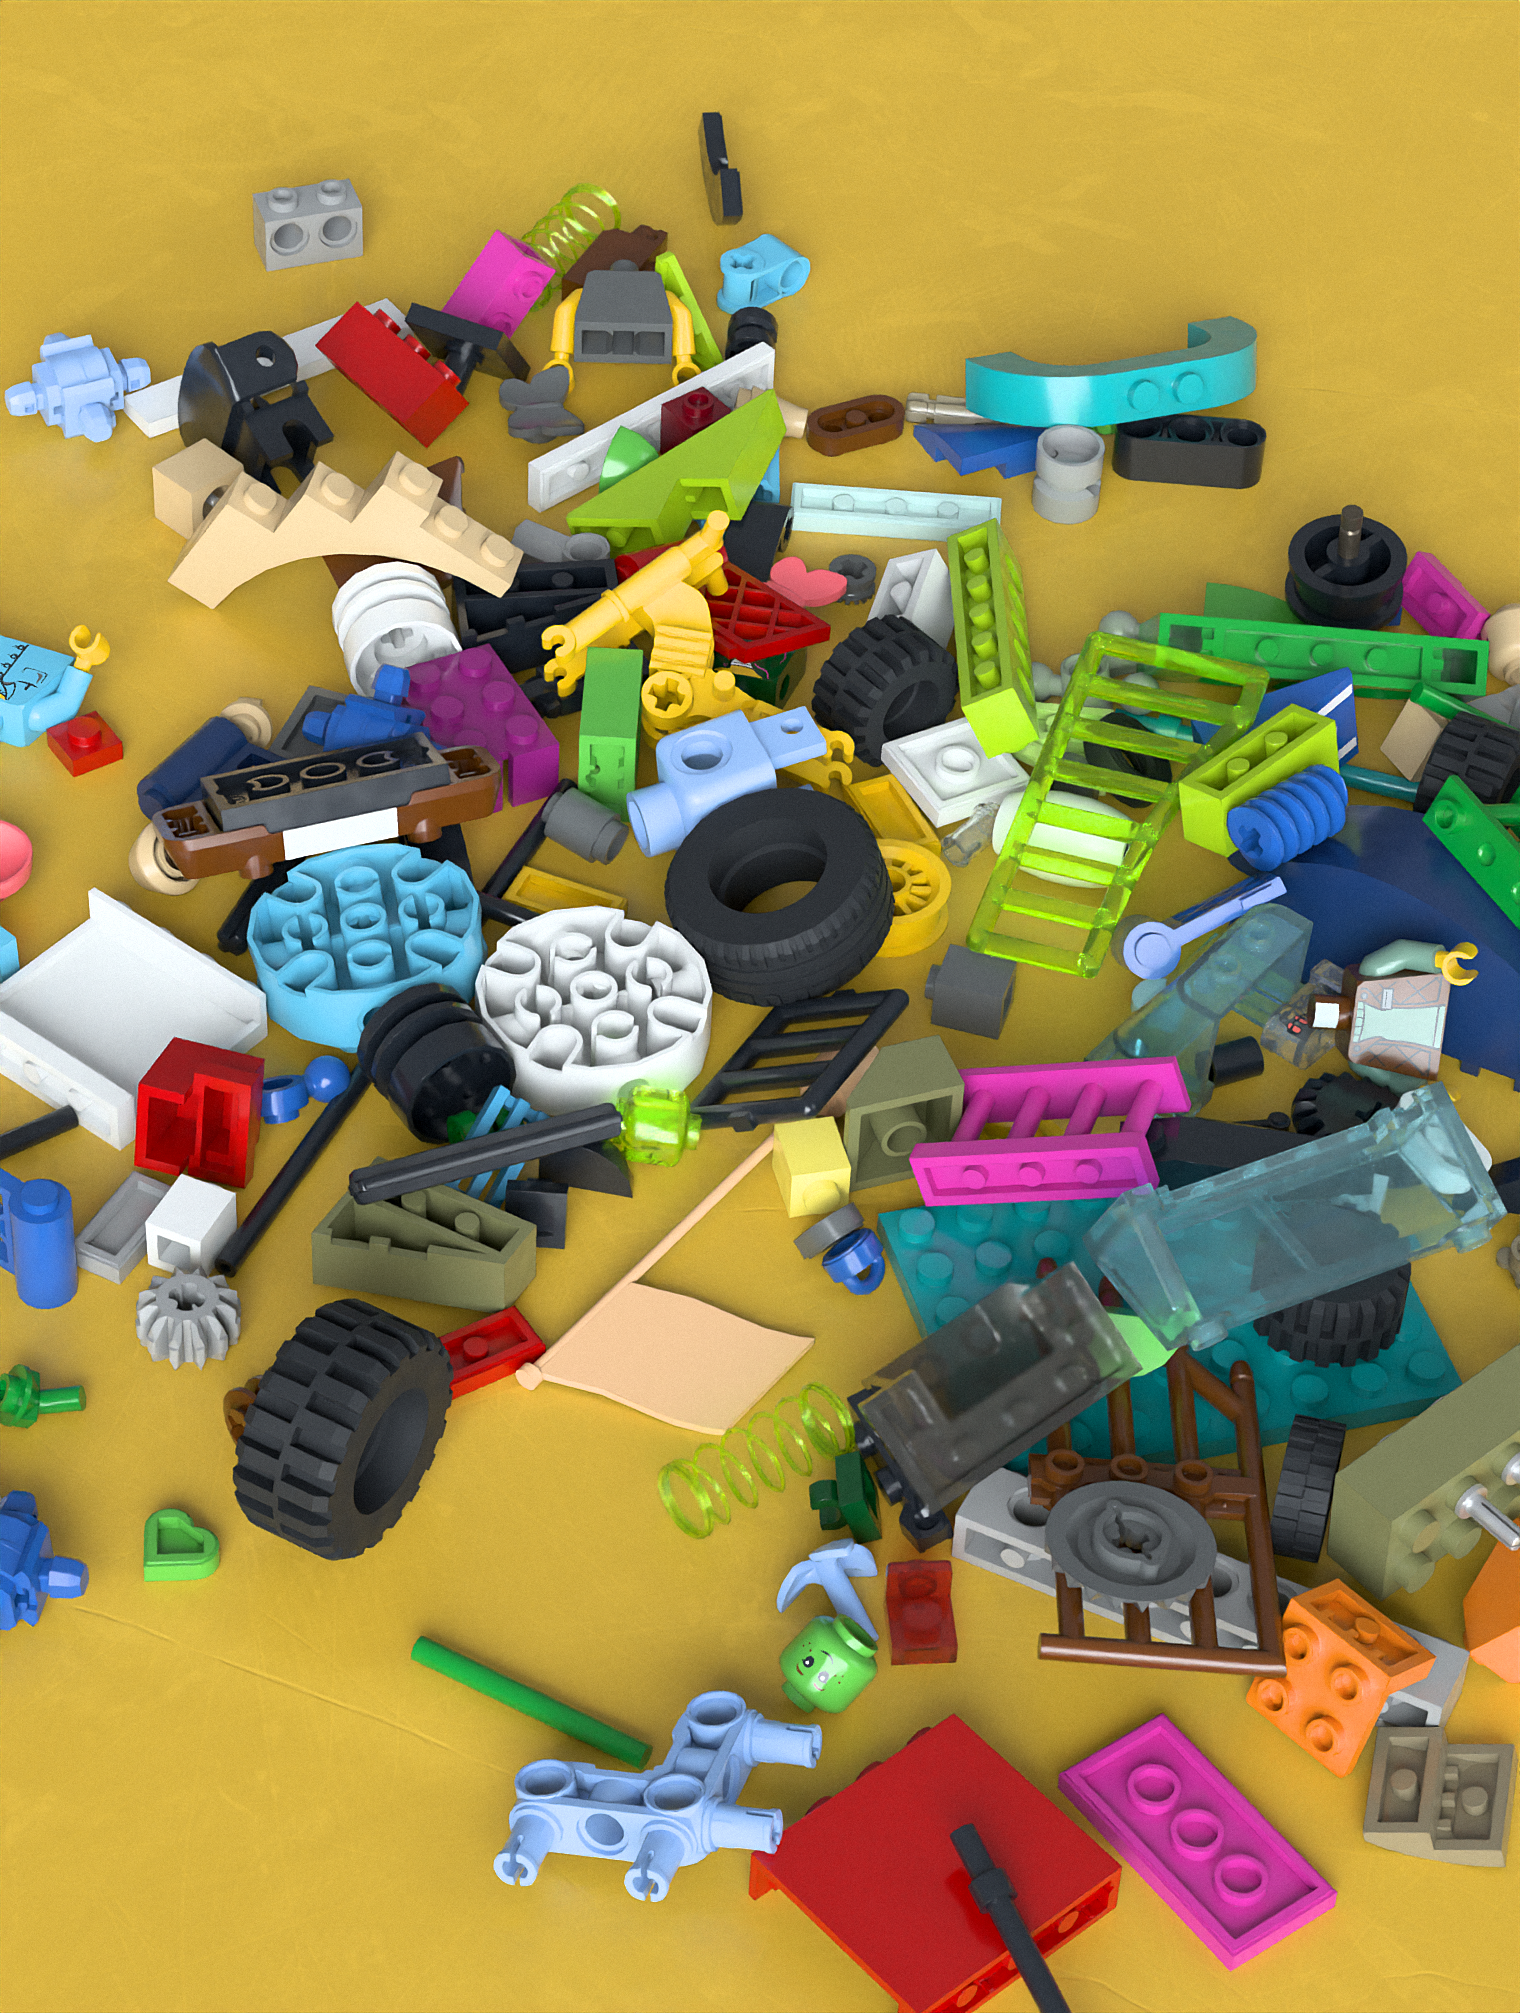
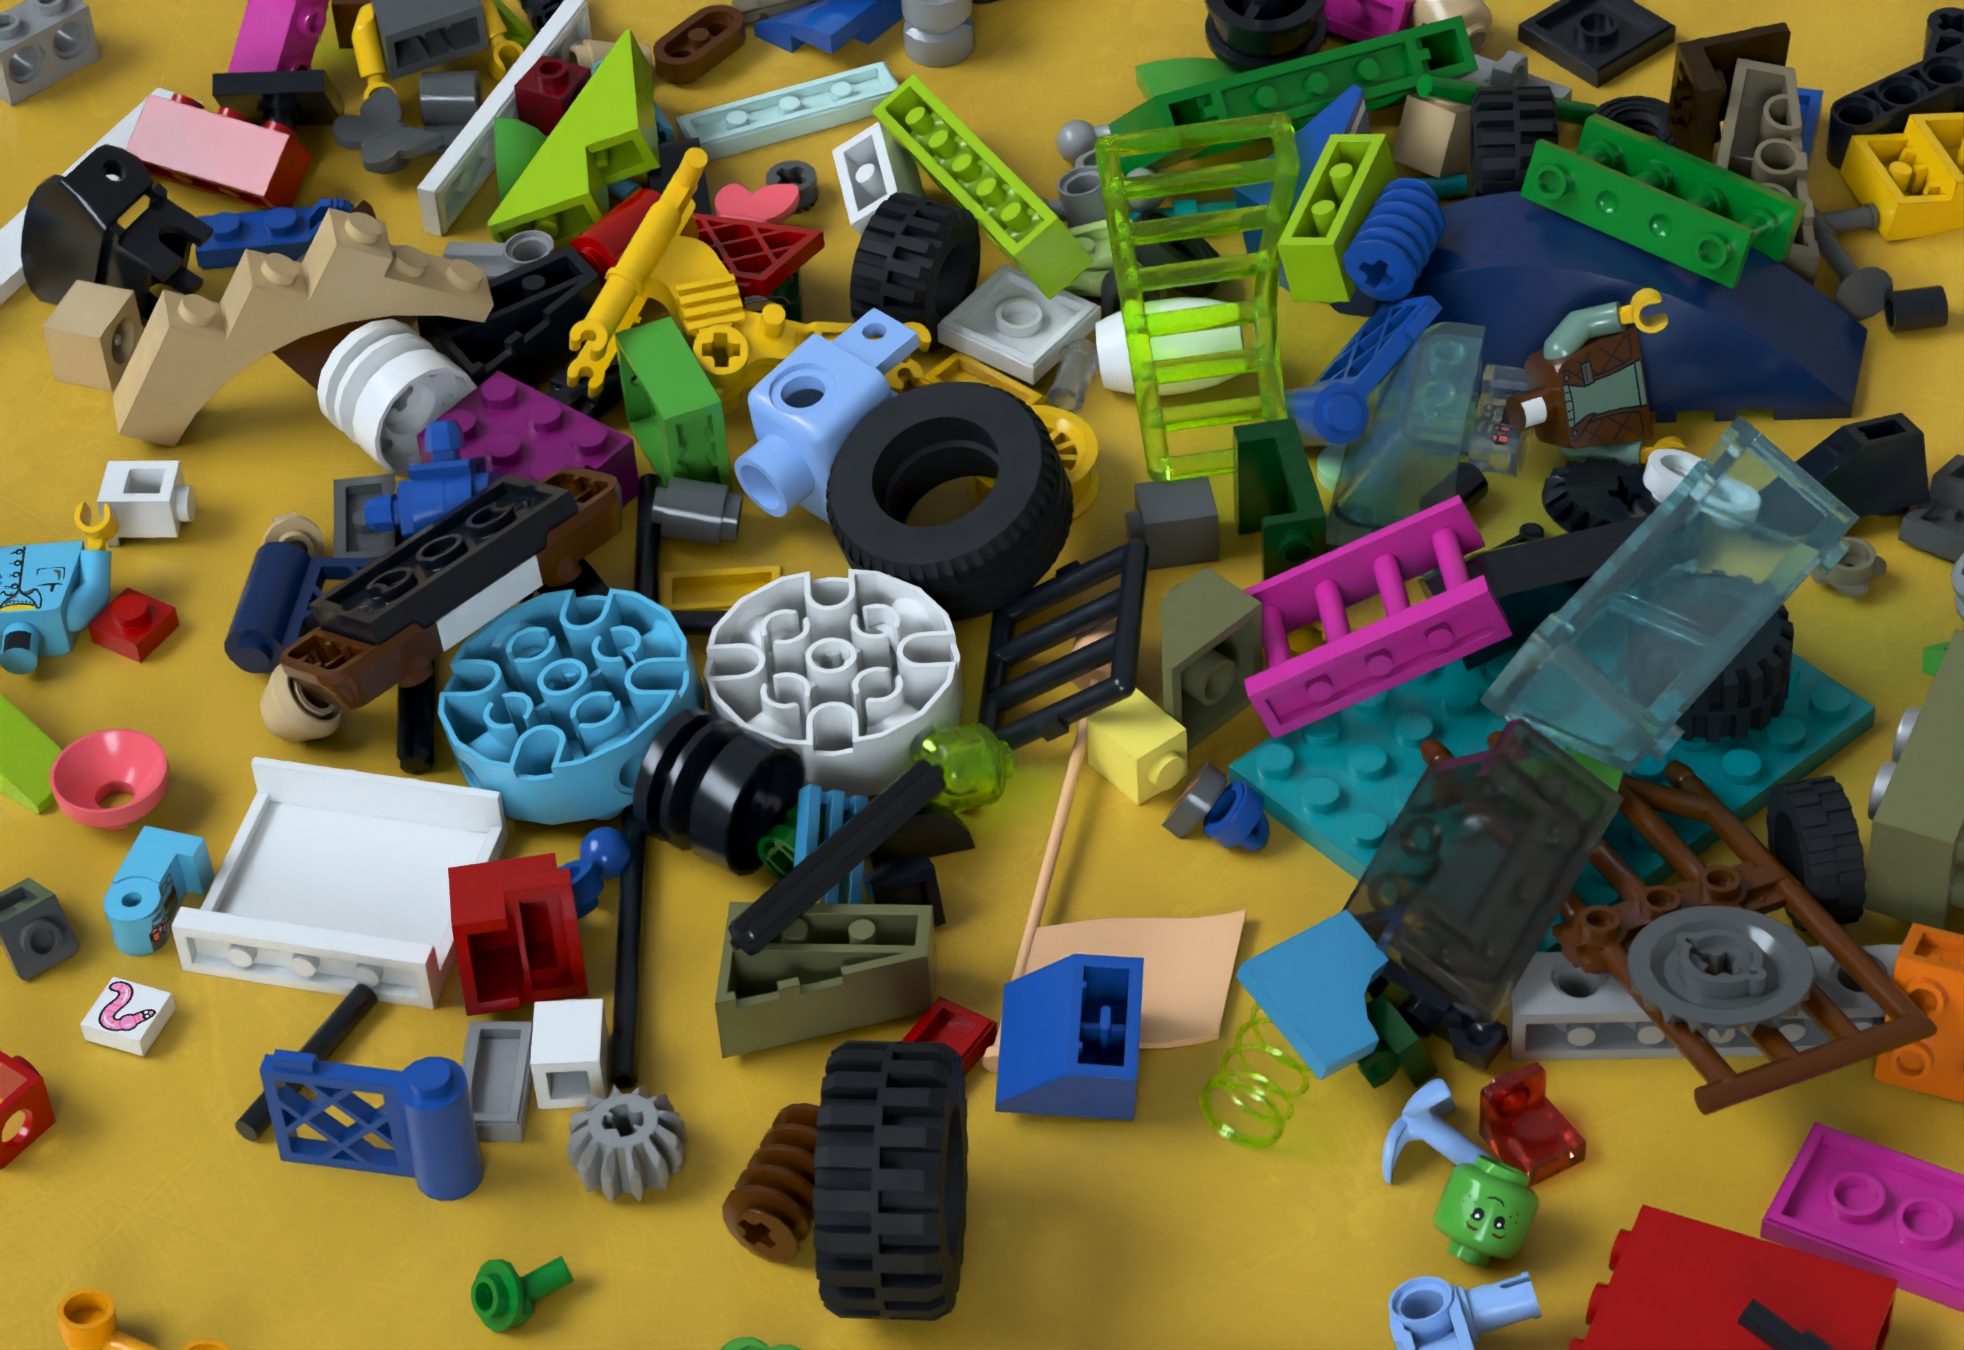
camera: 20 degrees left, 0 degrees up
(151, 643) = (146, 498): none -> white brick
(367, 450) = (266, 231): none -> blue hinge
(590, 1385) = (1072, 1039): none -> blue slope
(611, 395) = (449, 102): none -> dark grey panel
(796, 1423) = (1317, 991): none -> dark azure tile
(1060, 1000) = (1277, 495): none -> dark green panel

